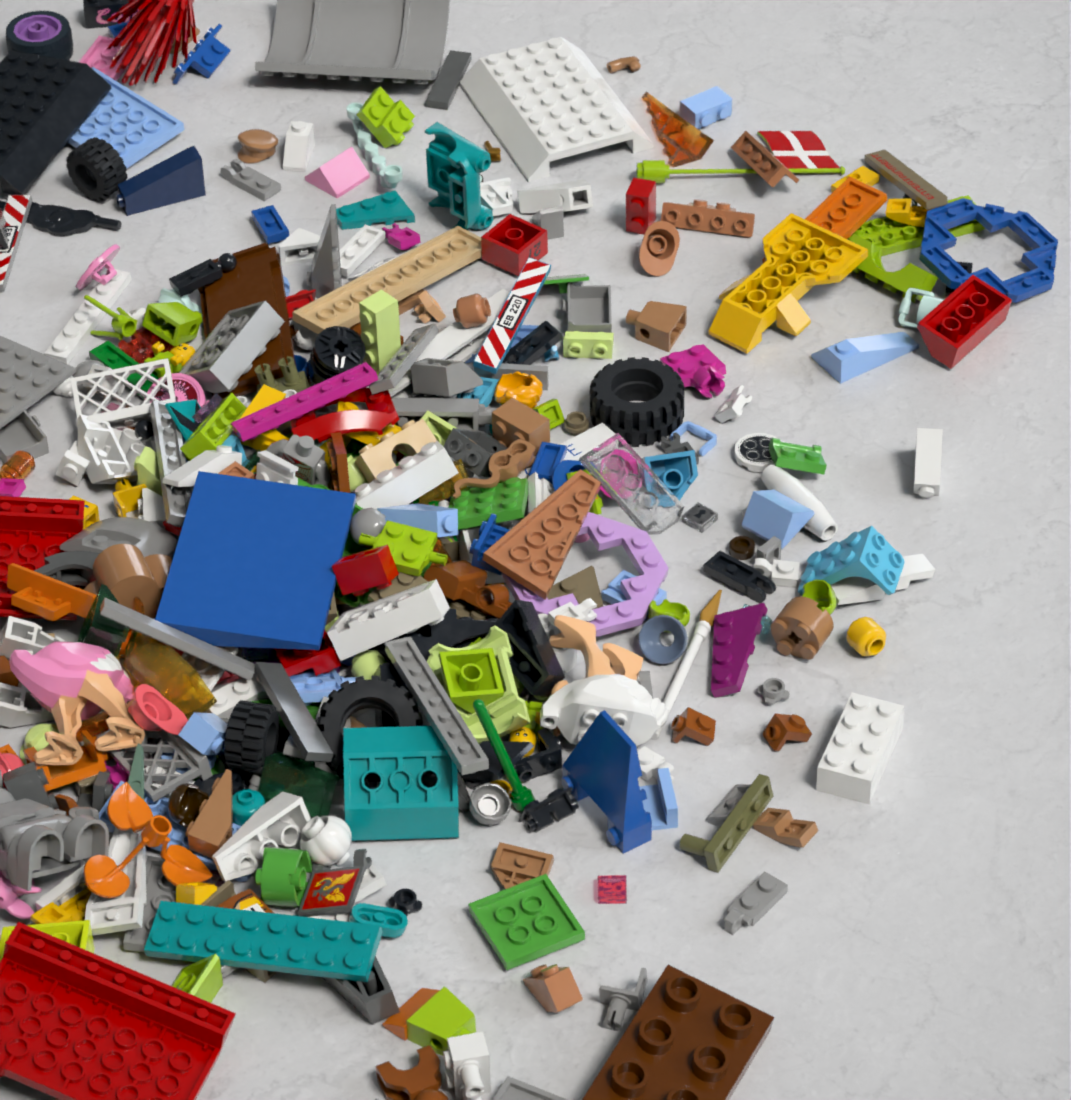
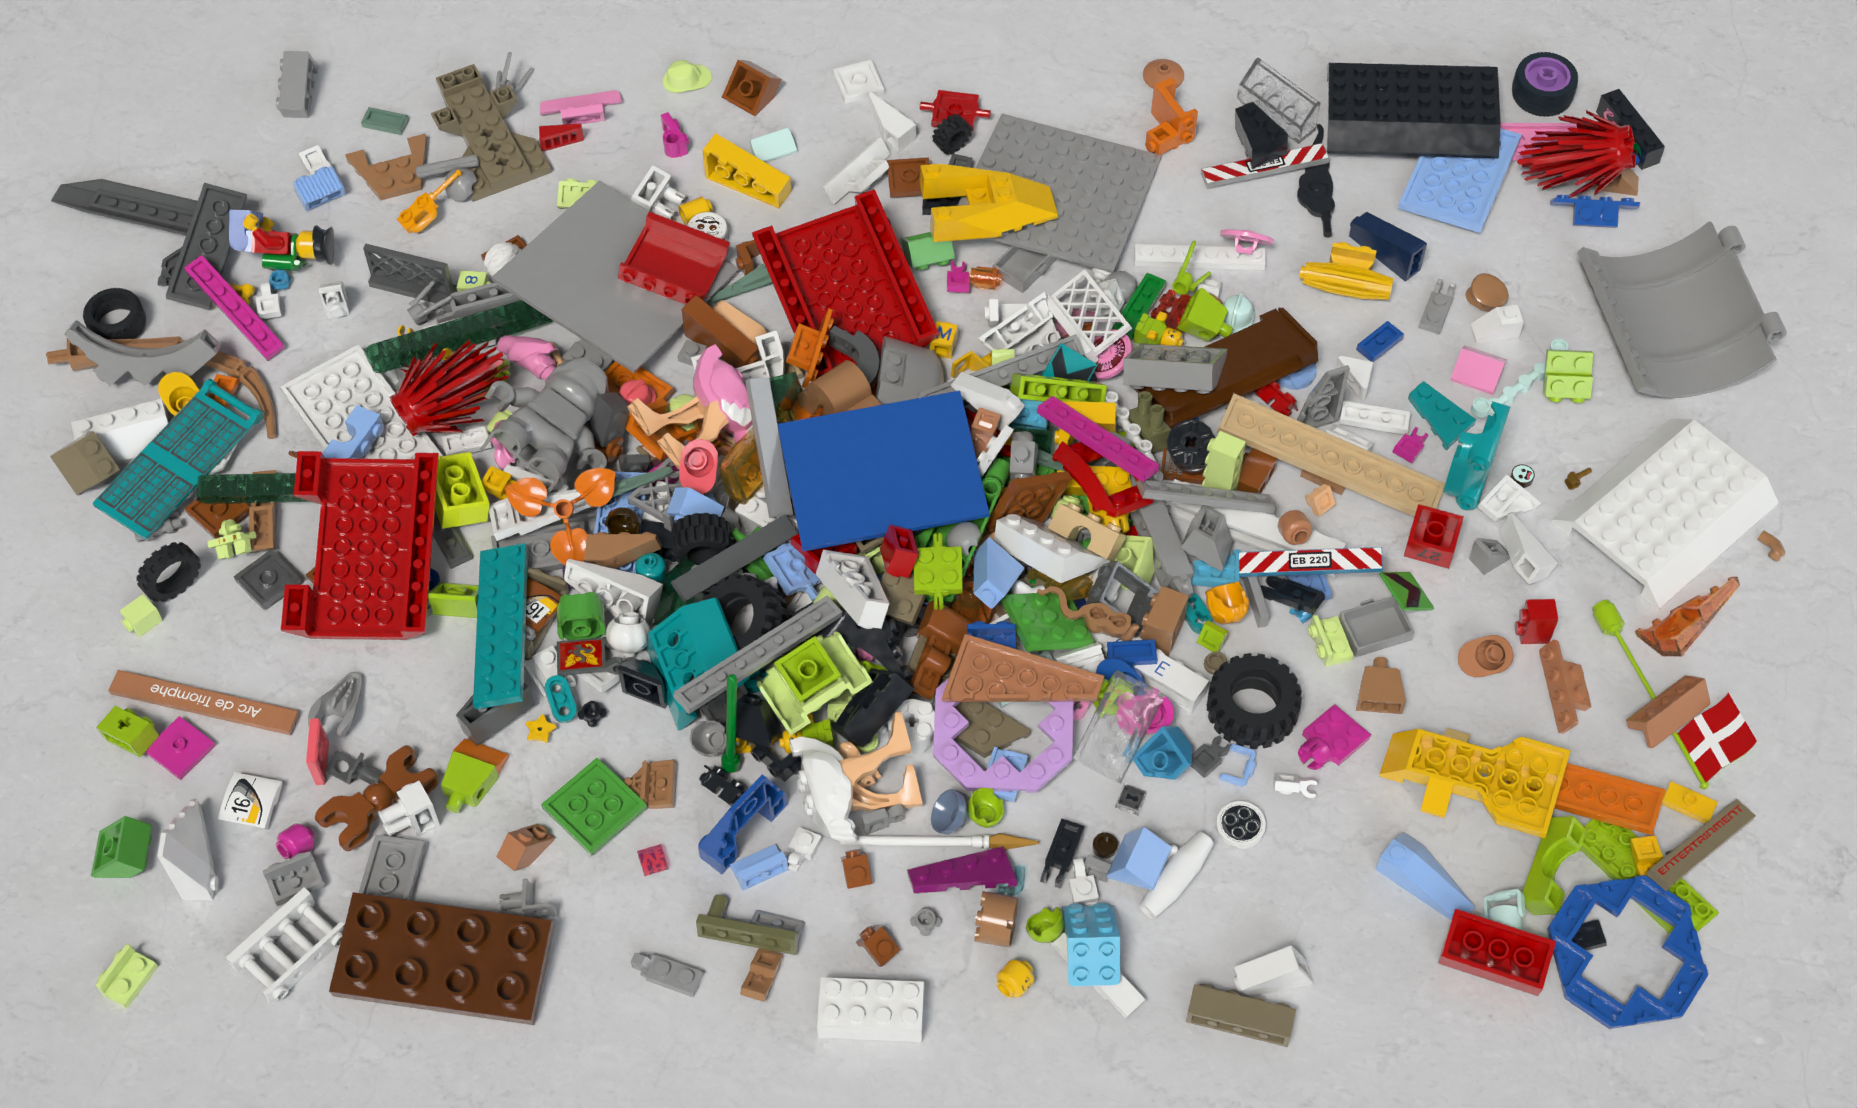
camera: 70 degrees right, 15 degrees up
(96, 169) = (1374, 188): black tyre -> none
(181, 221) = (1348, 274): none -> yellow plate
(194, 892) = (545, 563): yellow slope -> none
(202, 274) = (1264, 312): black plate -> none
(207, 408) = (1085, 376): clear purple tile -> none
(396, 840) = (642, 681): none -> black slope
(407, 958) = (542, 735): none -> yellow plate
(448, 79) = (1669, 408): dark grey tile -> none
(582, 611) = (926, 726): white plate -> none
(706, 107) = (1735, 635): light blue brick -> none
(797, 456) = (1230, 859): bright green plate -> none
(959, 498) = (1241, 1015): none -> dark tan brick

